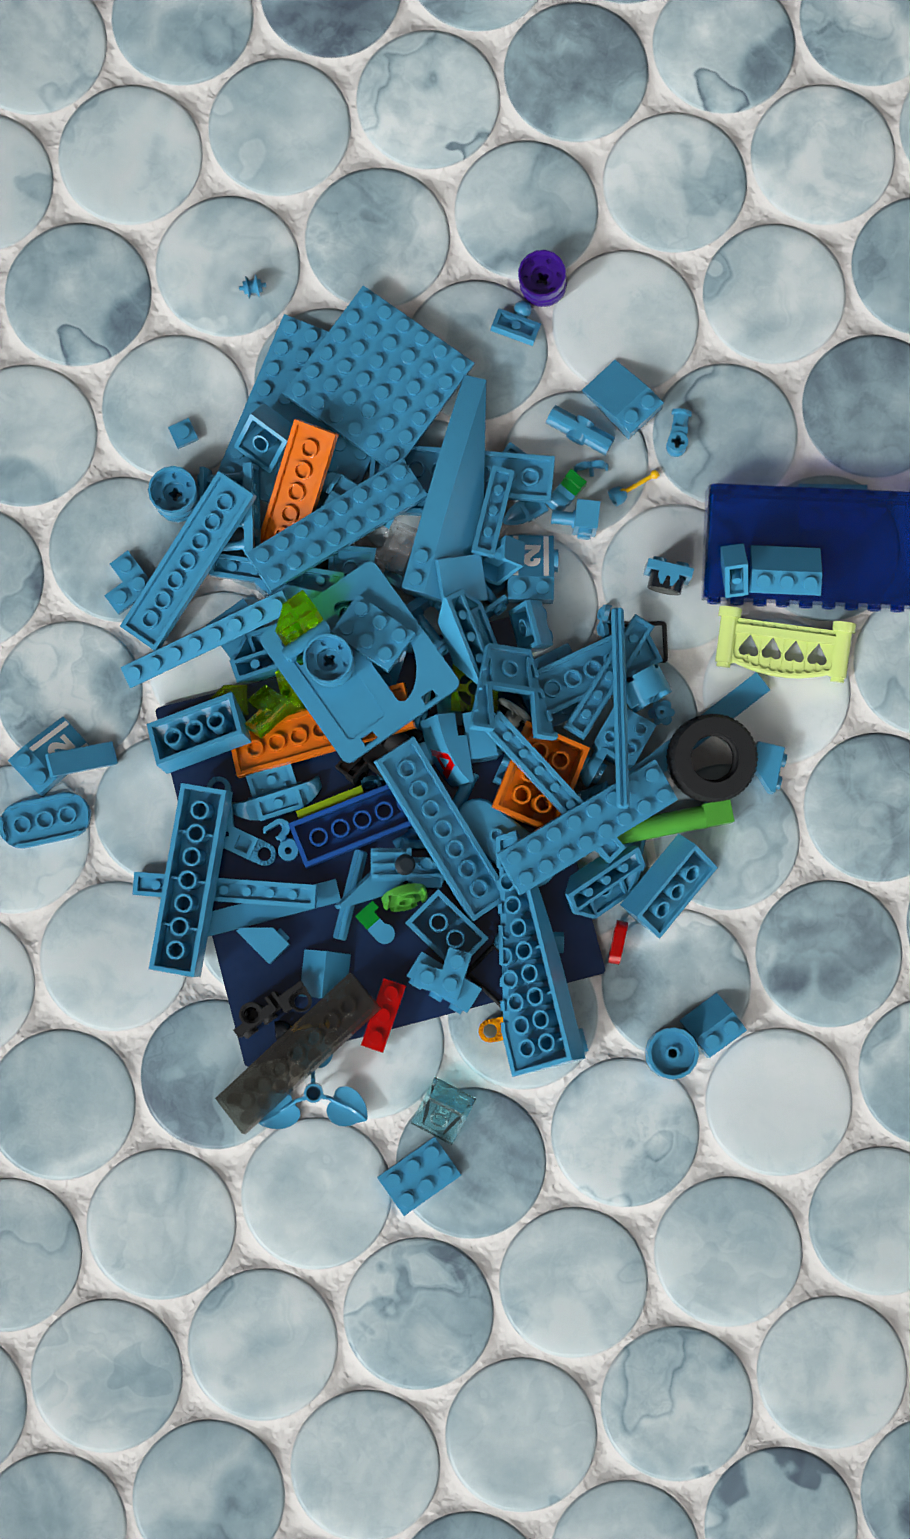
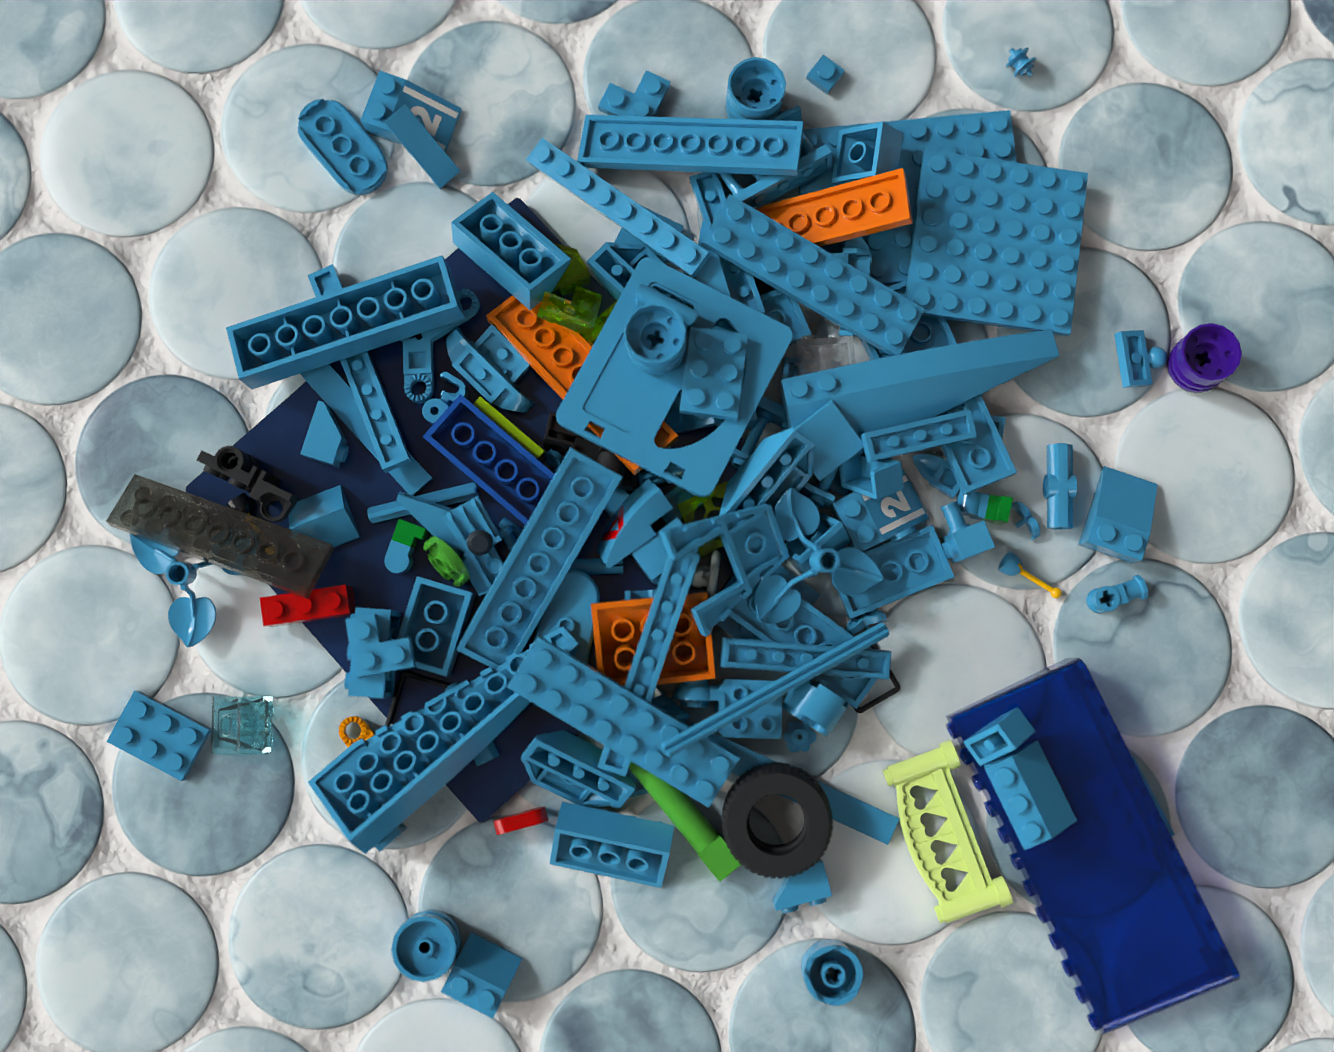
camera: 65 degrees right, 0 degrees up
(297, 618) = (685, 281): clear neon green slope -> none
(560, 611) = (851, 568): none -> dark azure plant
(578, 584) = (906, 568): none -> dark azure plate
(666, 576) = (951, 664): dark azure piece -> none
(846, 766) = (848, 971): none -> dark azure brick

